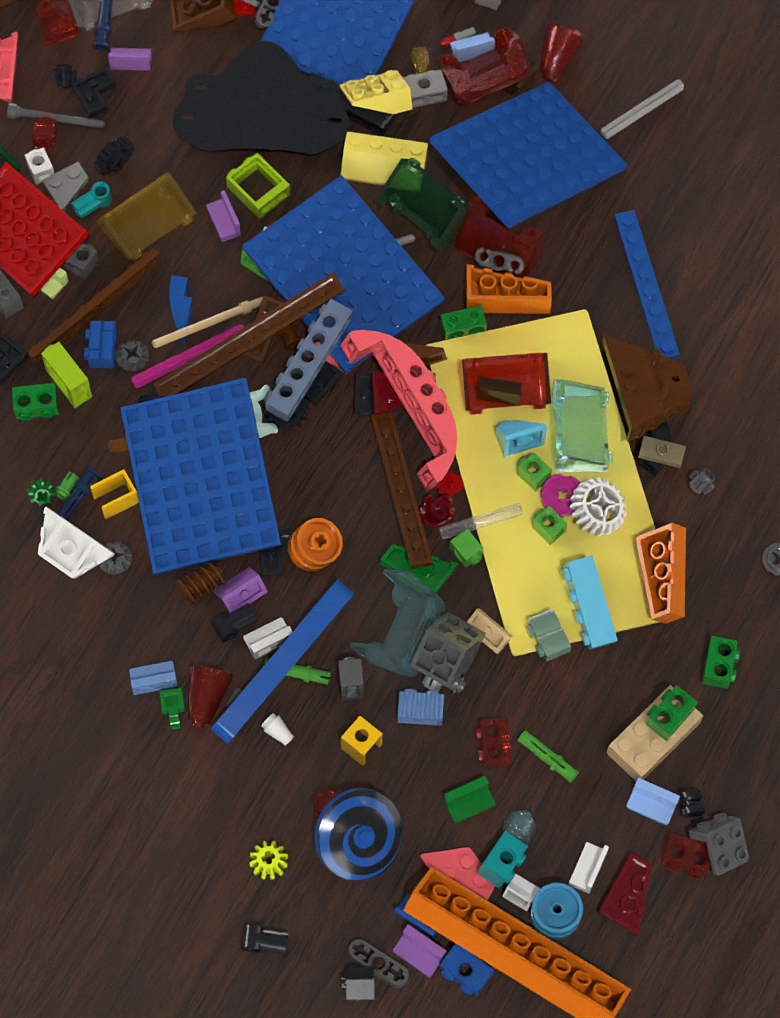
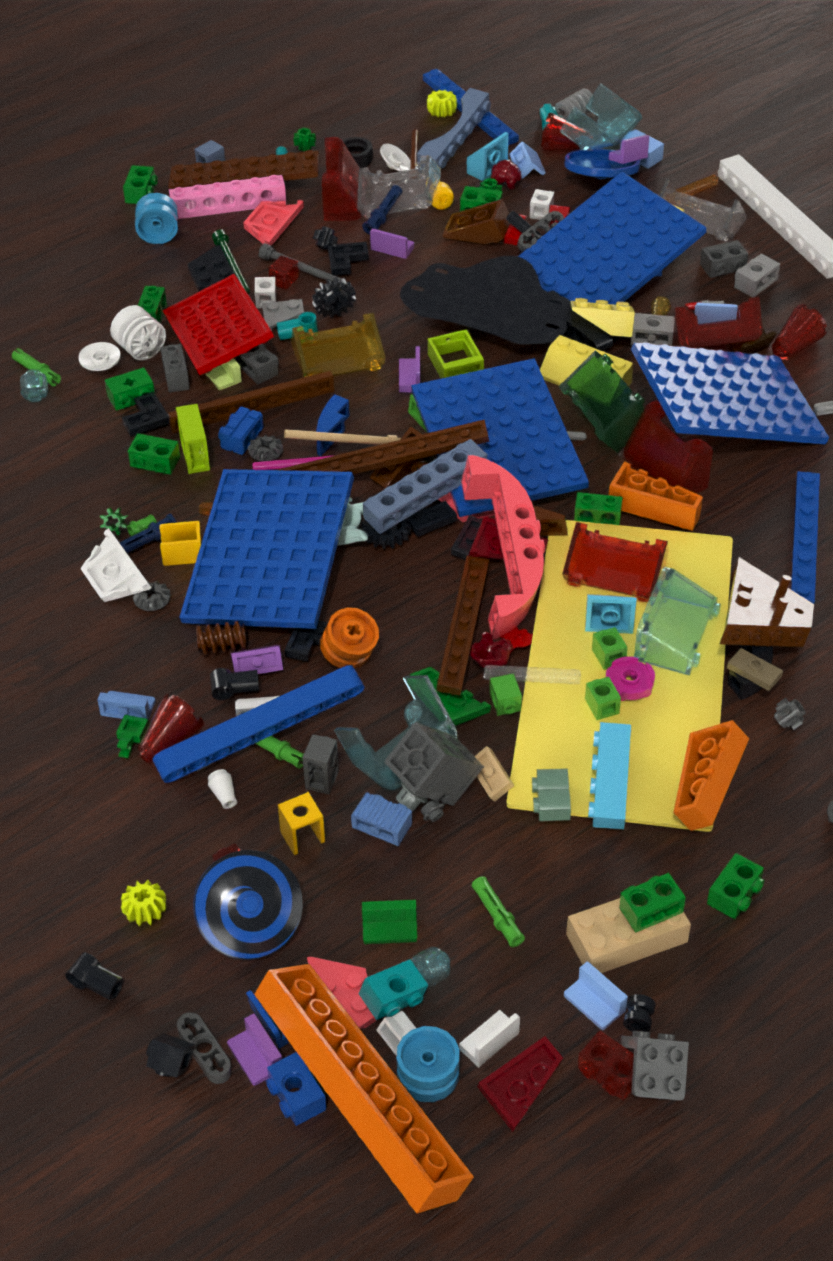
camera: 25 degrees right, 20 degrees down
(498, 743) = (448, 879): clear red brick -> none
(499, 391) = (605, 571): dark brown panel -> none
(508, 258) = (663, 472): dark grey piece -> none
(603, 500) = (660, 689): white gear -> none

